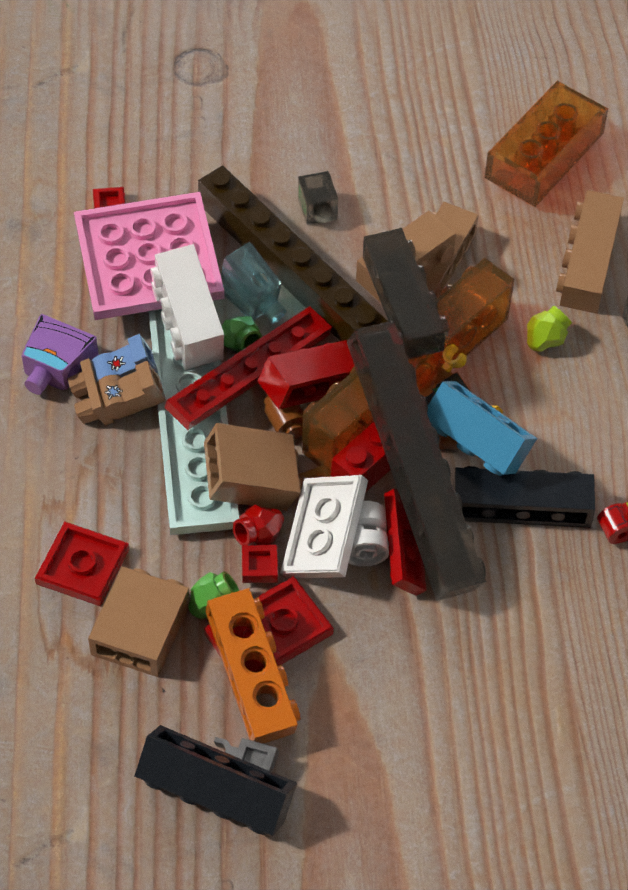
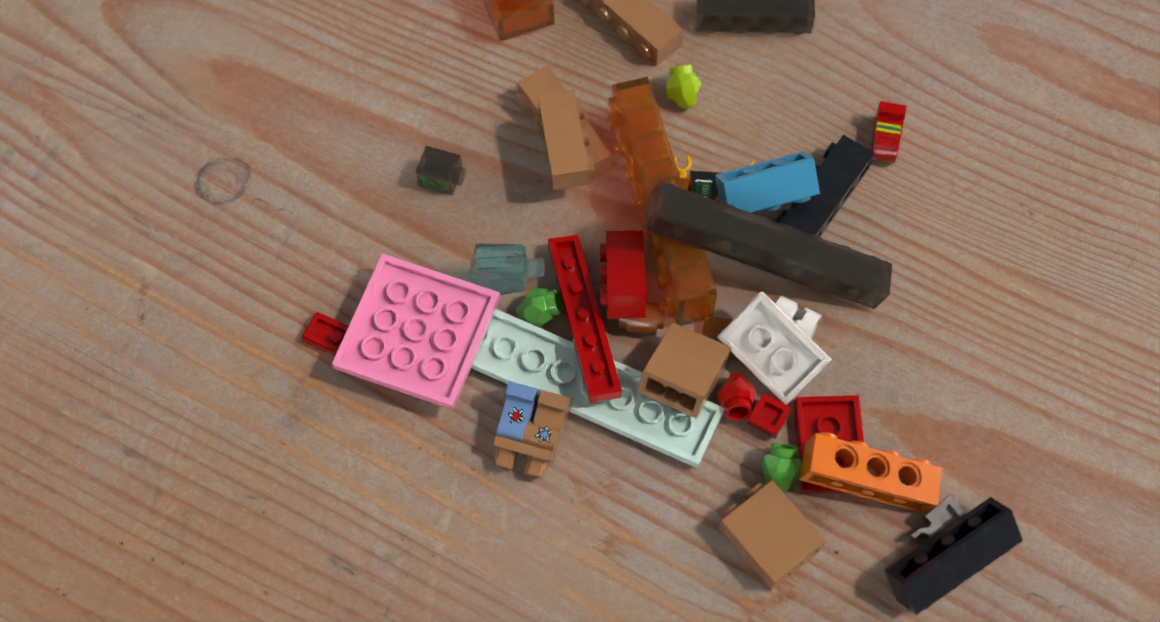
camera: 55 degrees left, 10 degrees up
(55, 354) = (463, 461): medium lavender torso -> none
(82, 563) = (683, 551): red tile -> none
(187, 307) = (514, 327): white brick -> none
(286, 254) = (504, 223): dark brown brick -> none
(362, 457) = (730, 286): red brick -> none
(404, 292) = (616, 158): clear smoke brick -> none
(405, 559) = (837, 311): red plate -> none

